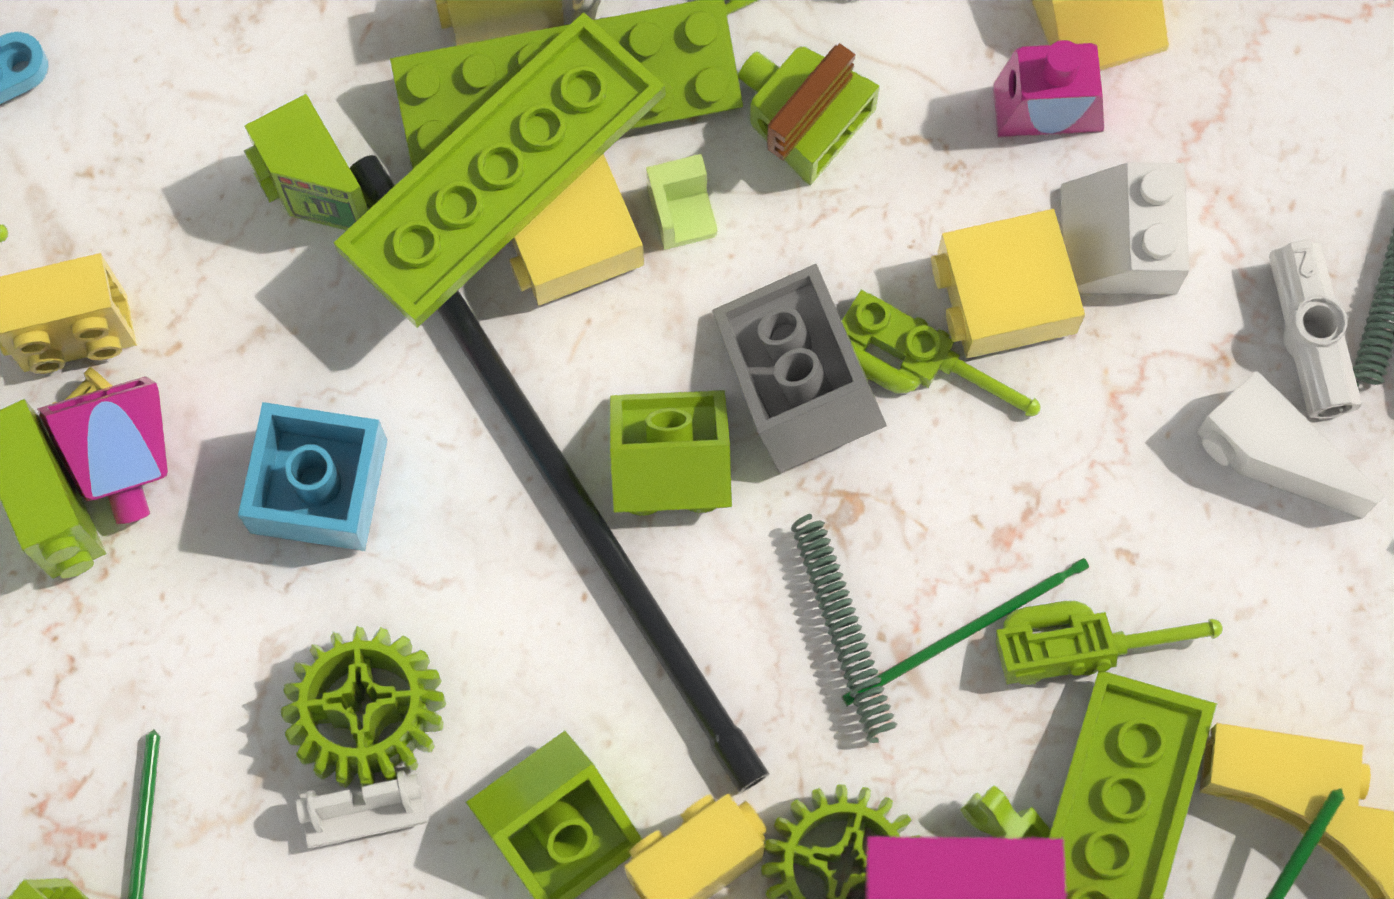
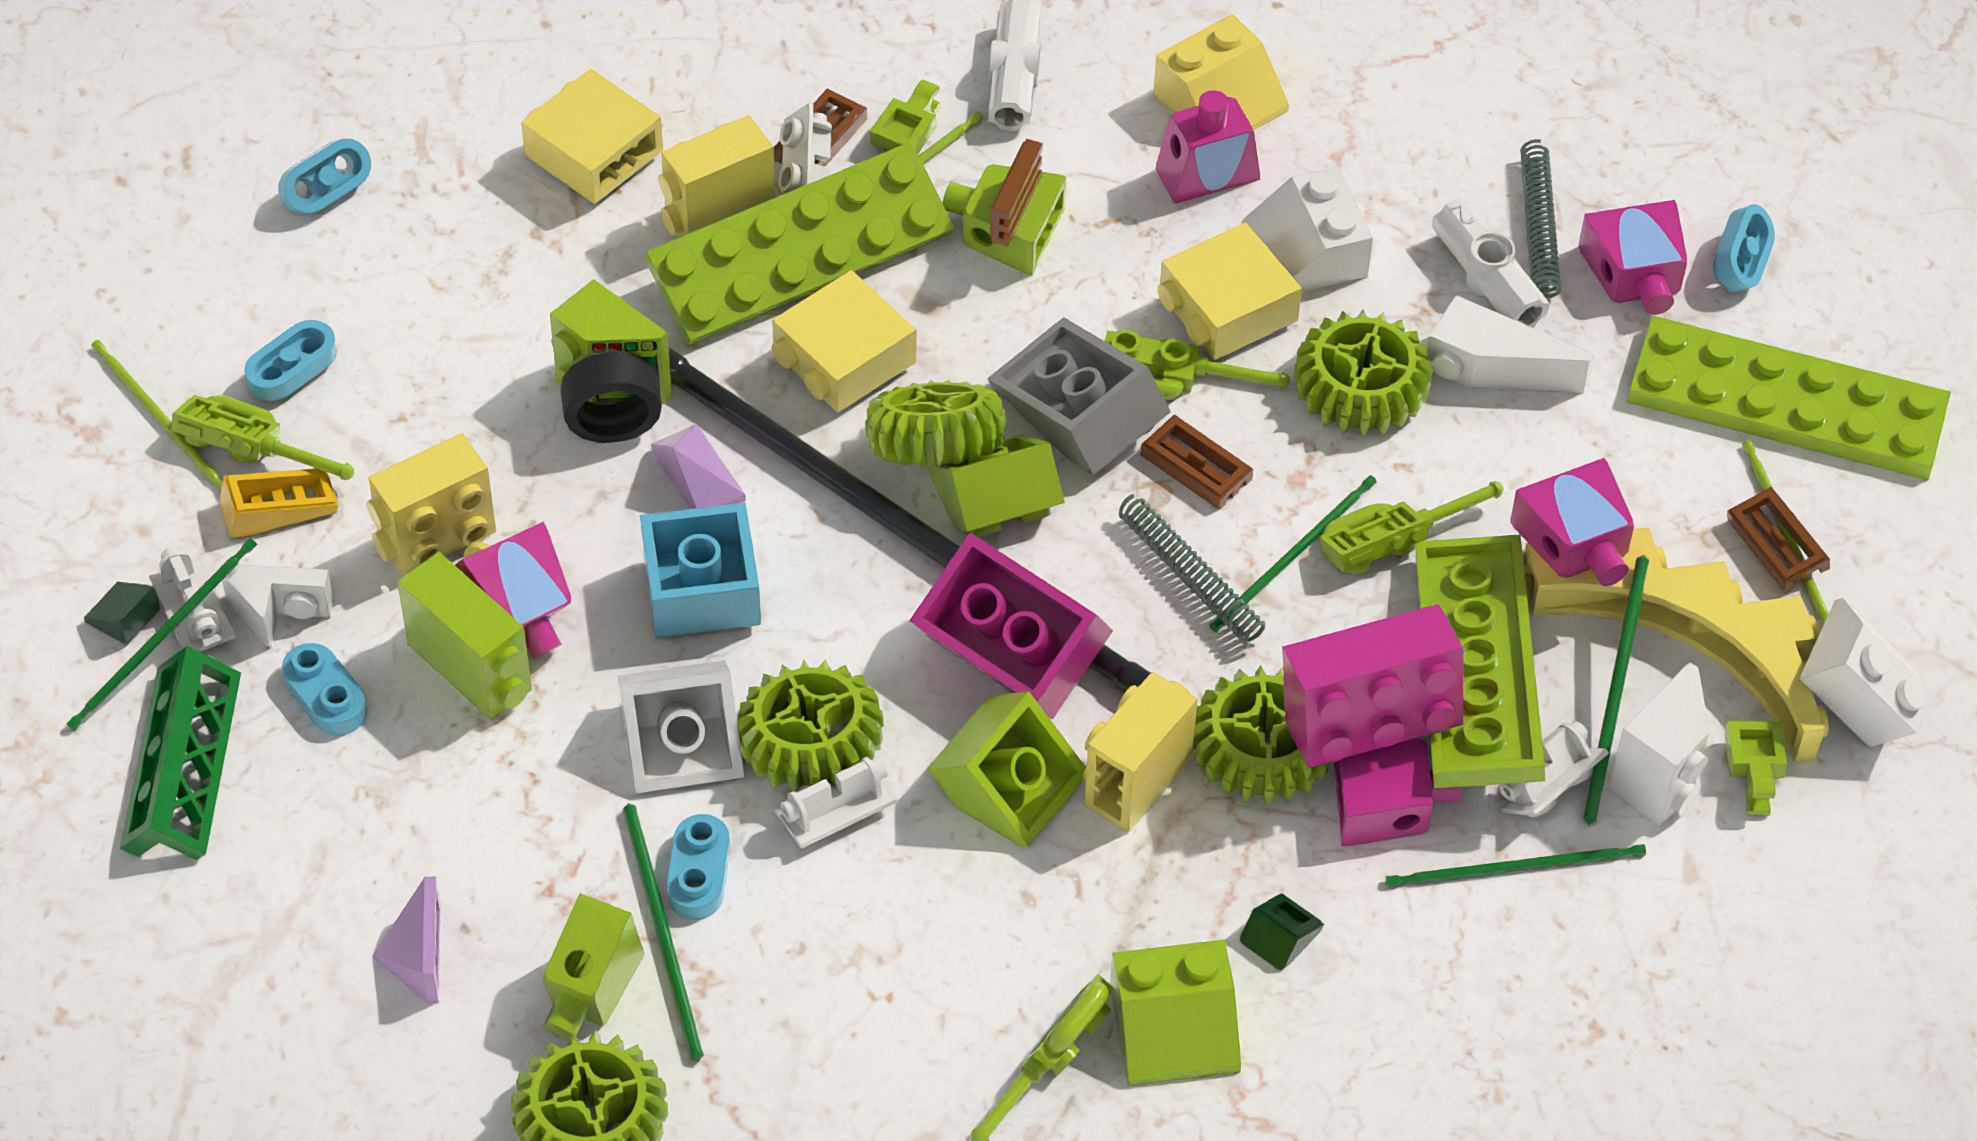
camera: 20 degrees left, 20 degrees down
(201, 834) = (699, 862): none -> medium azure plate
(231, 657) = (681, 726): none -> white slope
(292, 229) = (606, 374): none -> black tyre
(366, 337) = (697, 469): none -> lavender slope
(499, 169) = (776, 300): lime plate -> none
(612, 658) = (1011, 624): none -> dark pink brick
(623, 369) = (935, 423): none -> lime gear
(681, 201) = (925, 304): yellowish green panel -> none
(925, 525) = (1190, 465): none -> dark orange tile
(1138, 444) = (1363, 372): none -> lime gear
(1281, 730) = (1577, 522): none -> dark pink torso

